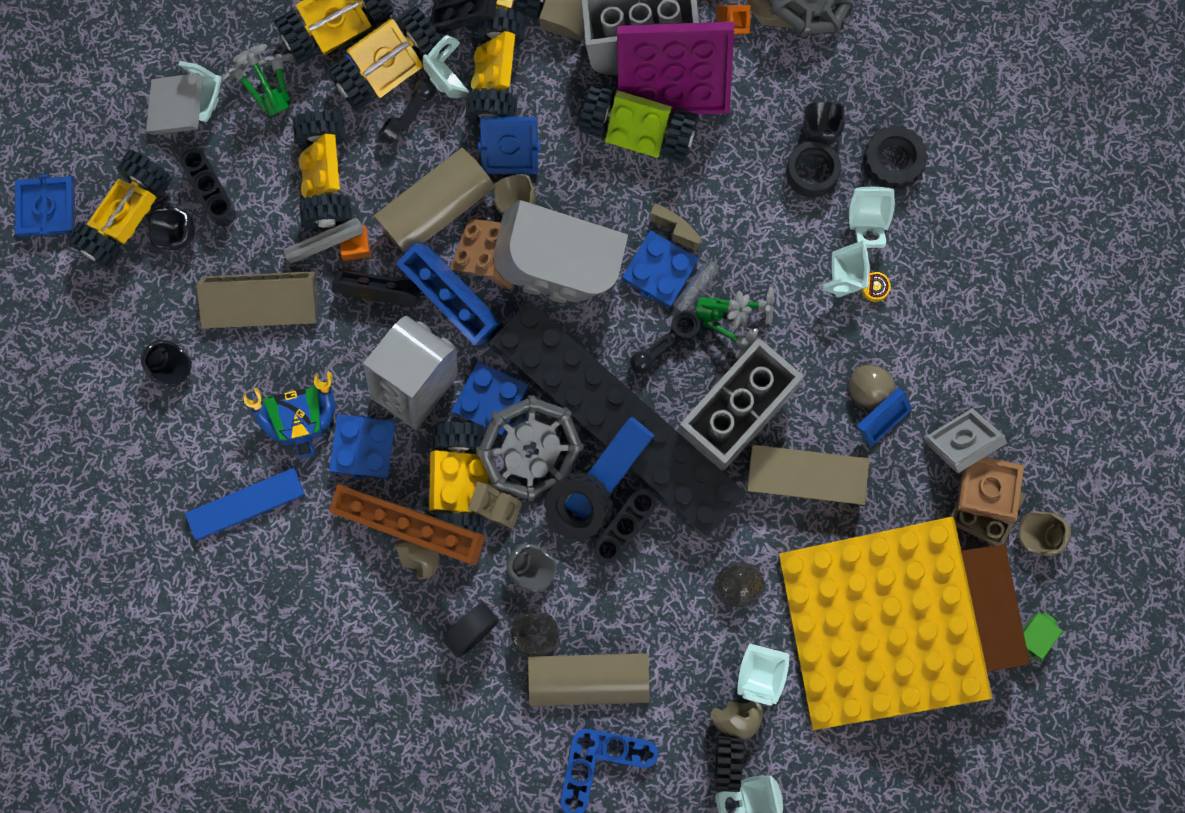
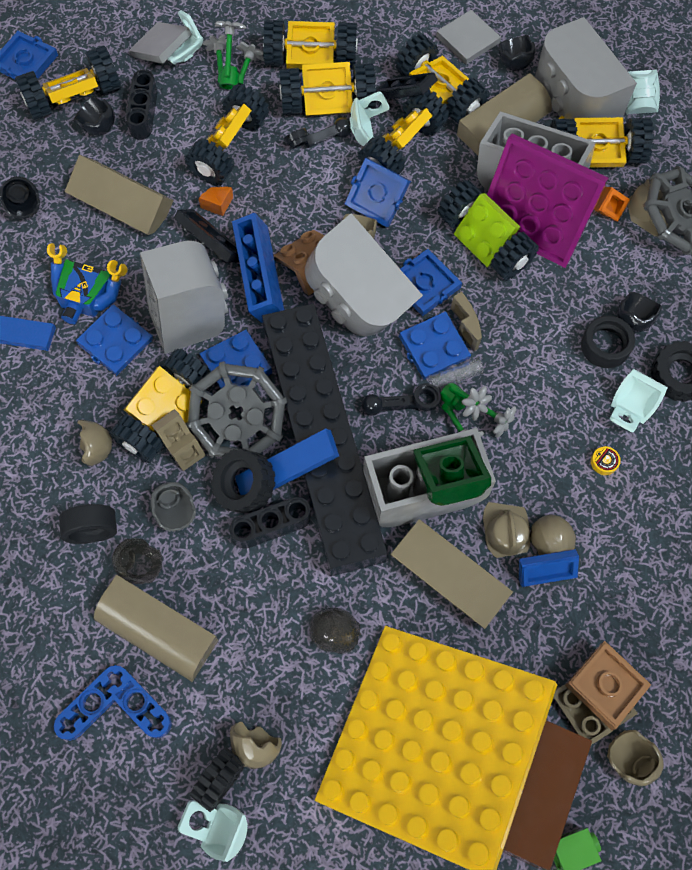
camera: 30 degrees right, 10 degrees down
(323, 240) = (194, 181): light grey axle -> none
(407, 524) = (99, 410): dark orange plate -> none
(434, 201) = (295, 198): dark tan brick -> none
(613, 206) = (431, 279): none -> blue plate
(763, 674) = (301, 720): light aqua piece -> none
(764, 392) = (452, 471): none -> dark green slope
(827, 403) = (506, 529): none -> dark tan piece
(849, 270) = (590, 434): light aqua piece -> none
(965, 440) = (609, 630): light grey tile -> none

